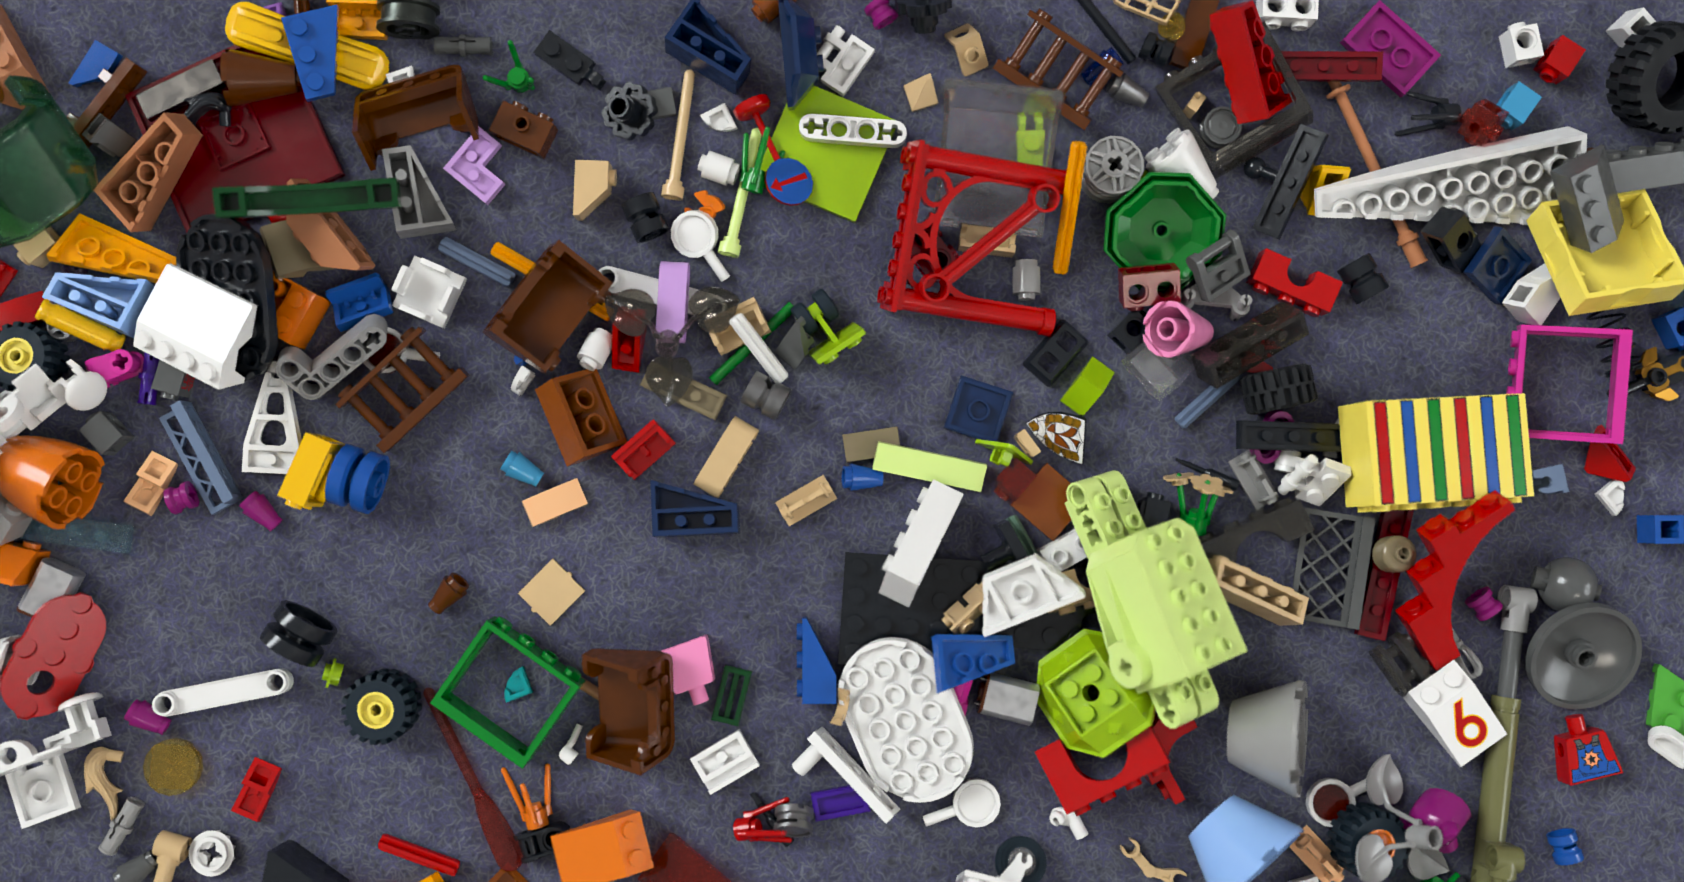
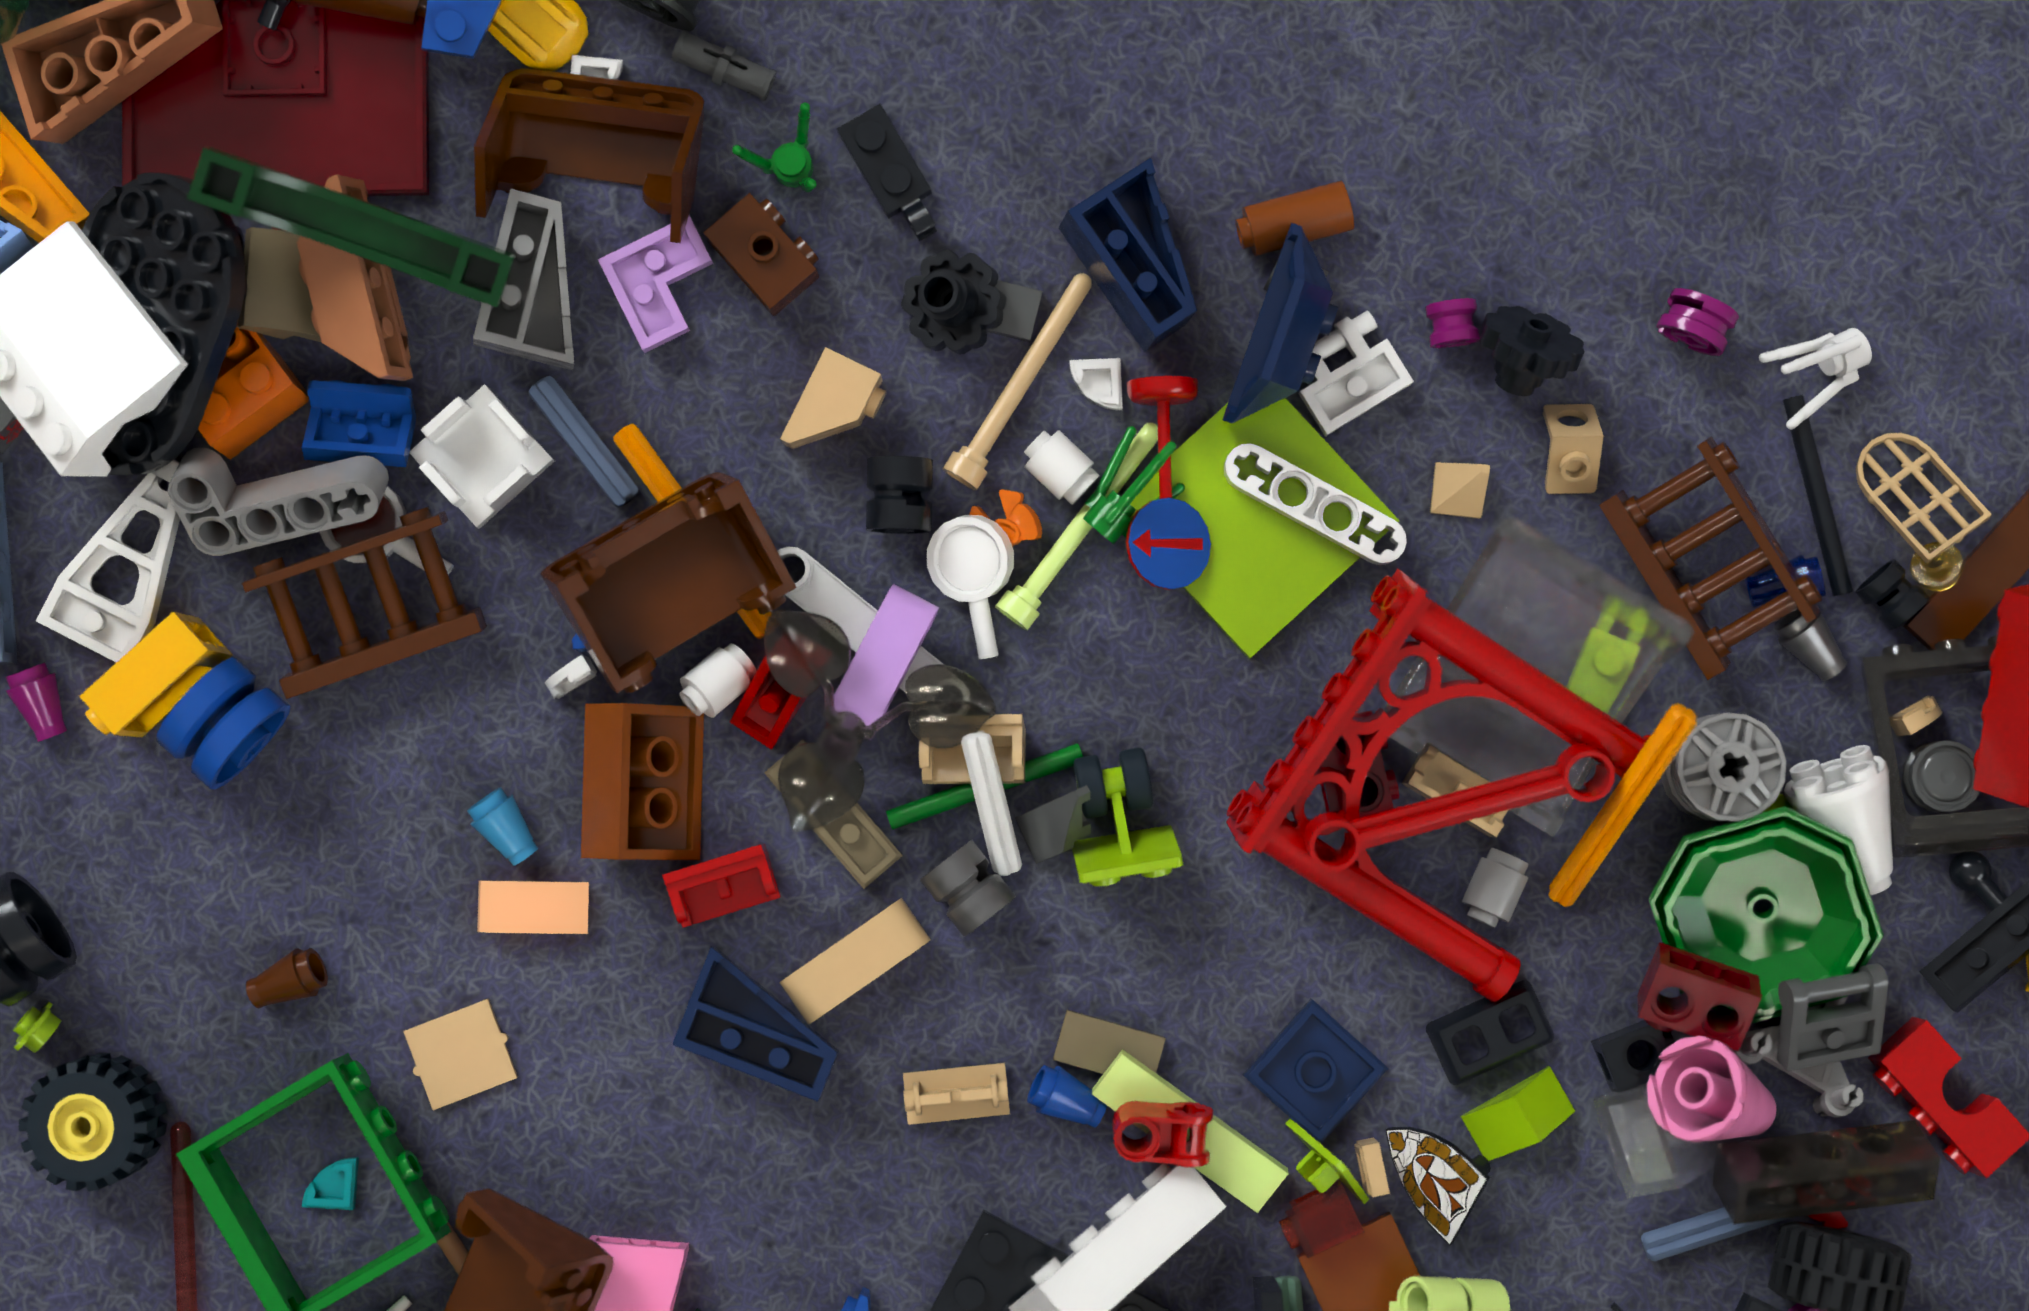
camera: 25 degrees right, 0 degrees up
(918, 470) = (1167, 1134): none -> red piece

